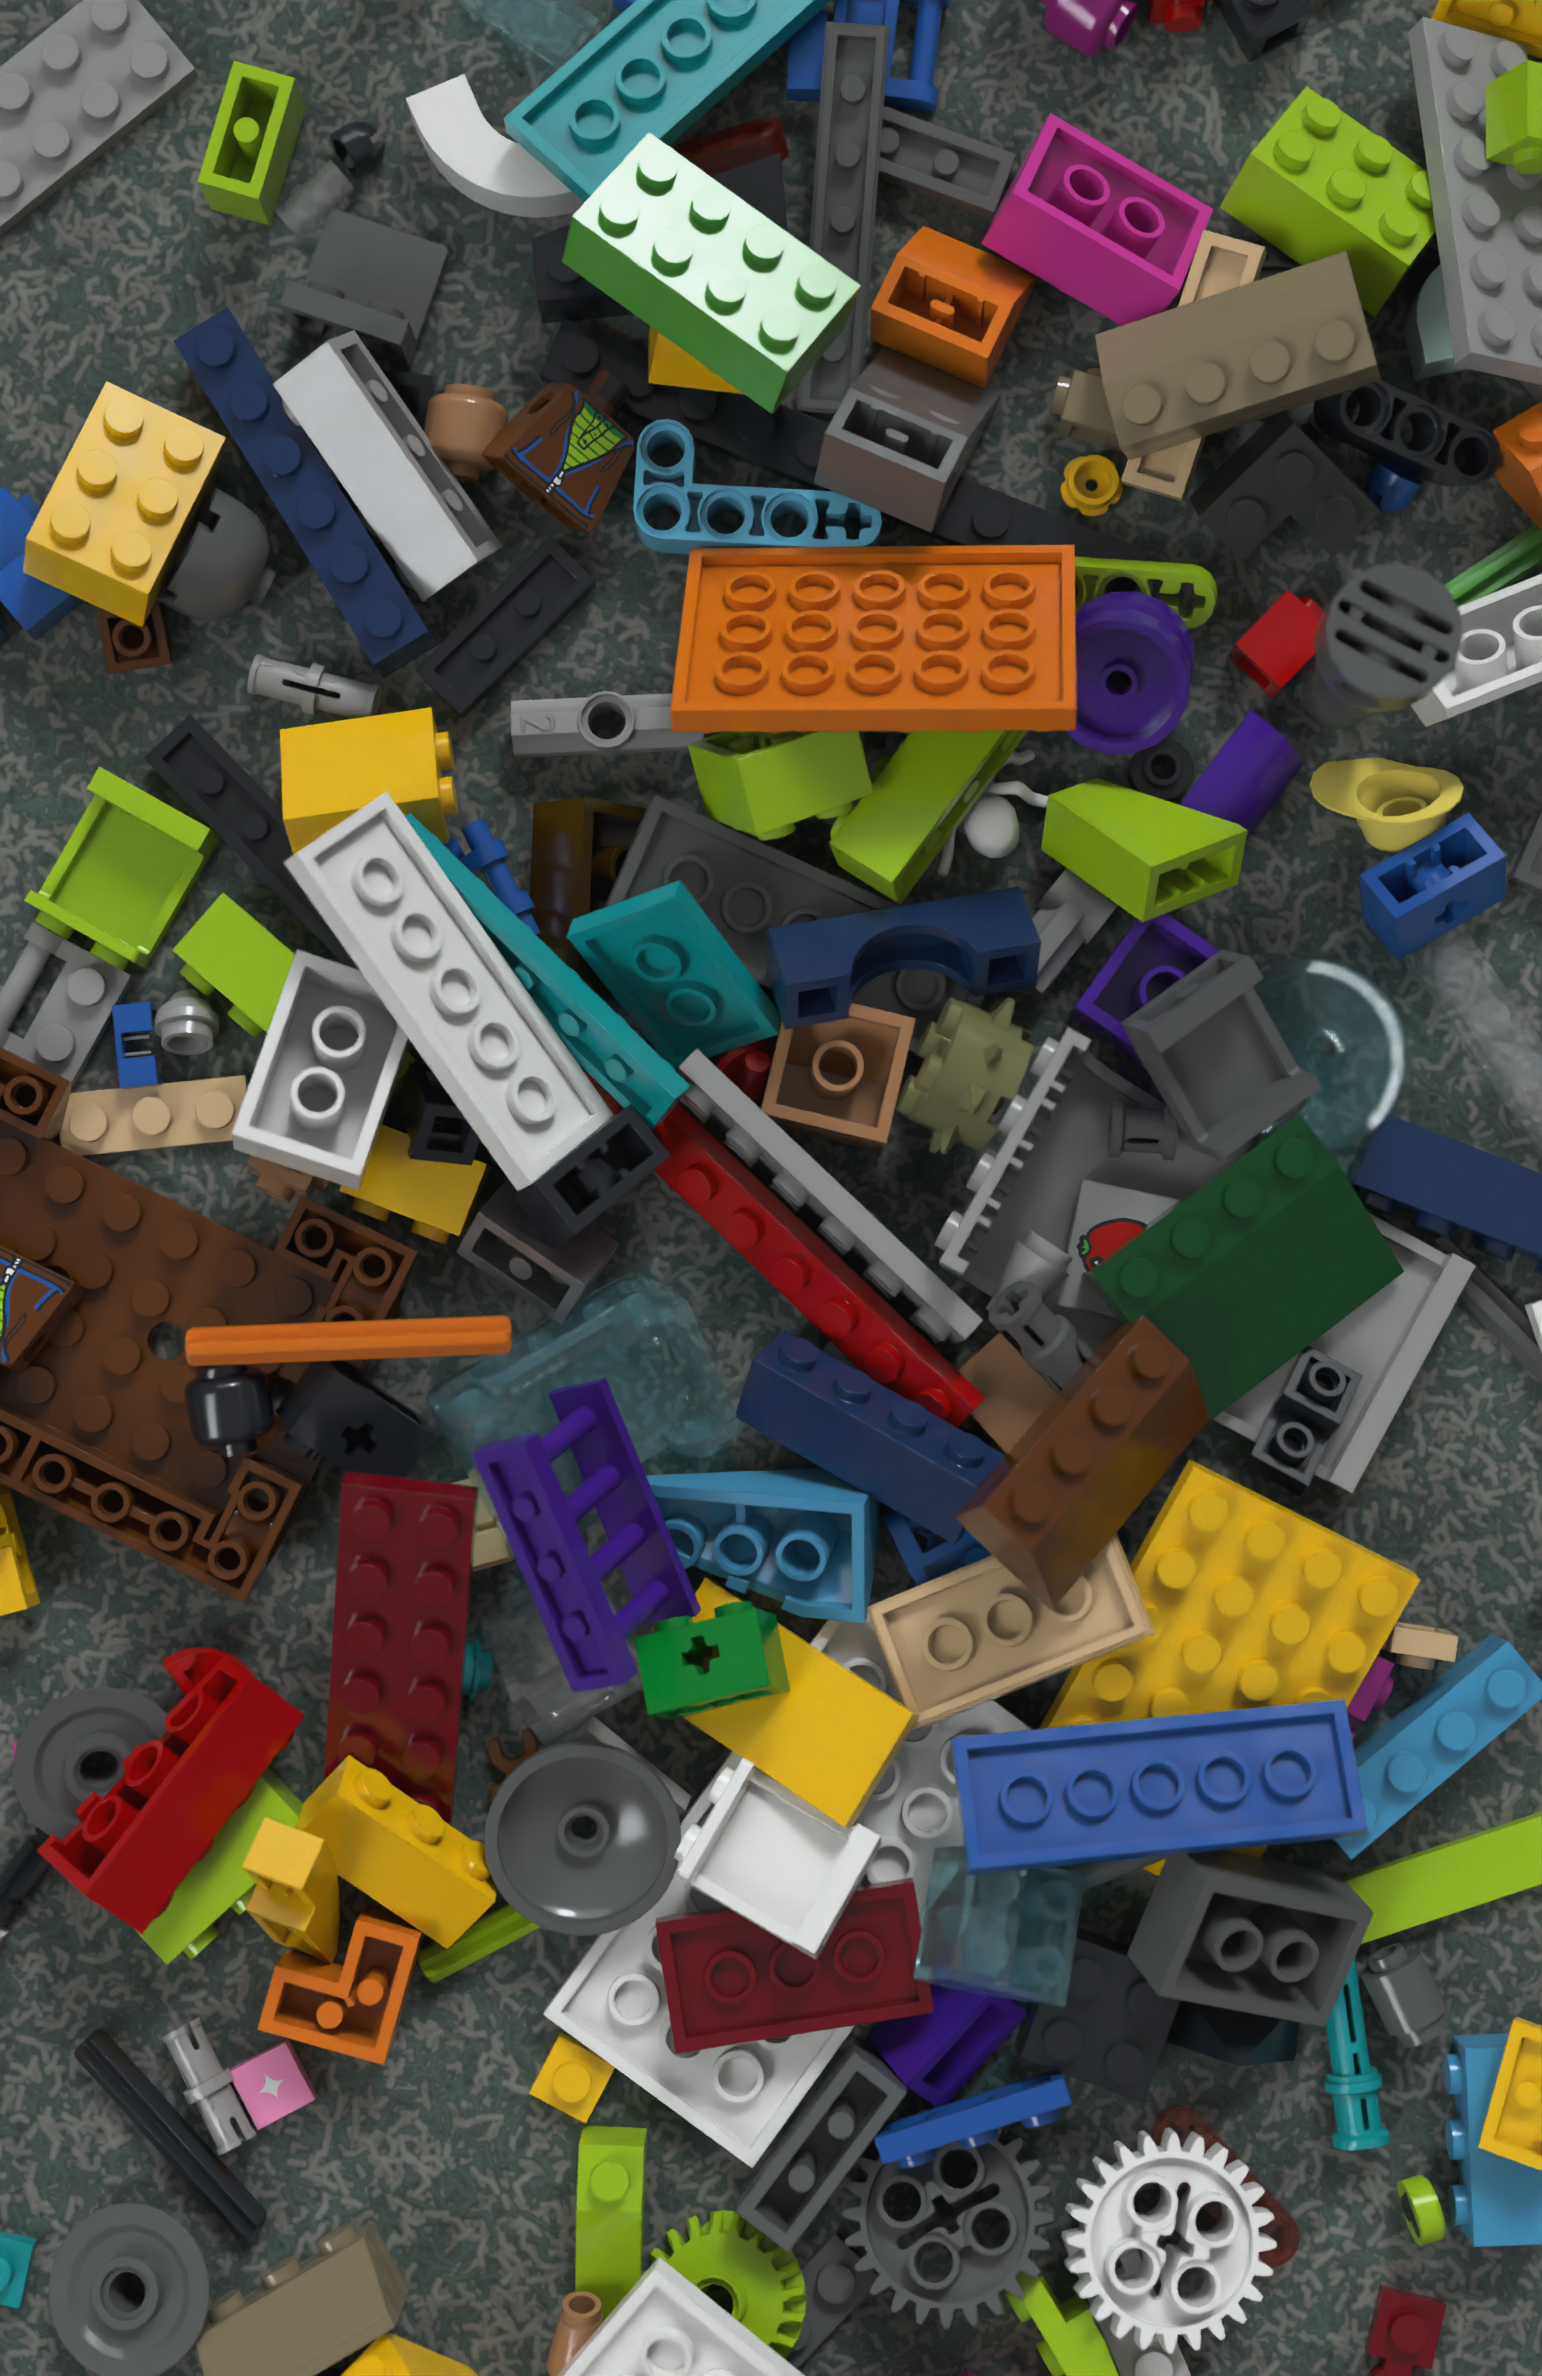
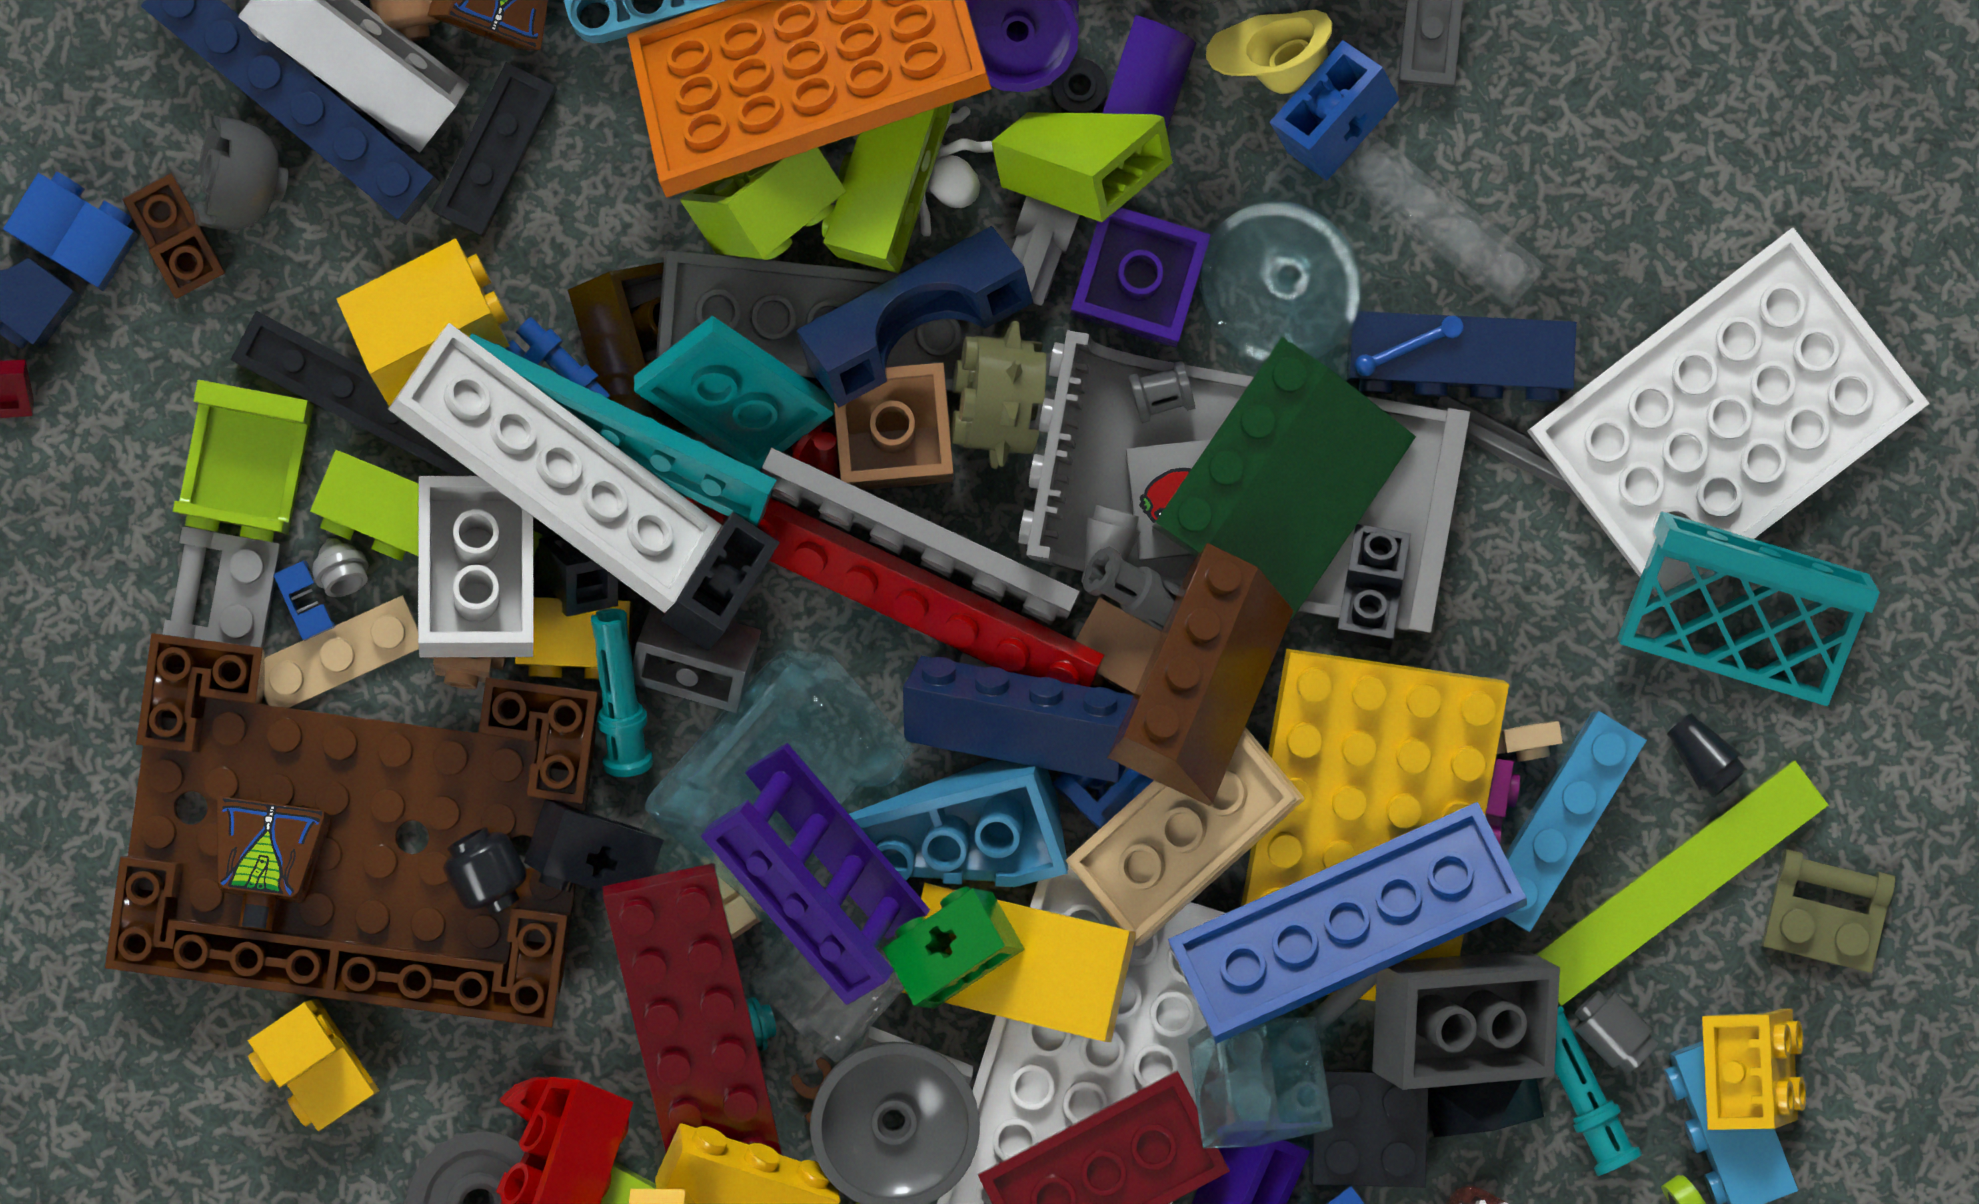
camera: 20 degrees left, 0 degrees up
(123, 504) = (145, 155): yellow brick -> none
(272, 680) = (313, 255): light grey pin -> none
(348, 1340) = (566, 782): orange axle -> none
(436, 1286) = (621, 714): none -> teal pin
(564, 726) = (571, 216): light grey piece -> none
(775, 1858) = (1058, 1088): white panel -> none
(1219, 1056) = (1202, 311): dark grey panel -> none
(1482, 1166) = (1450, 328): none -> blue hinge

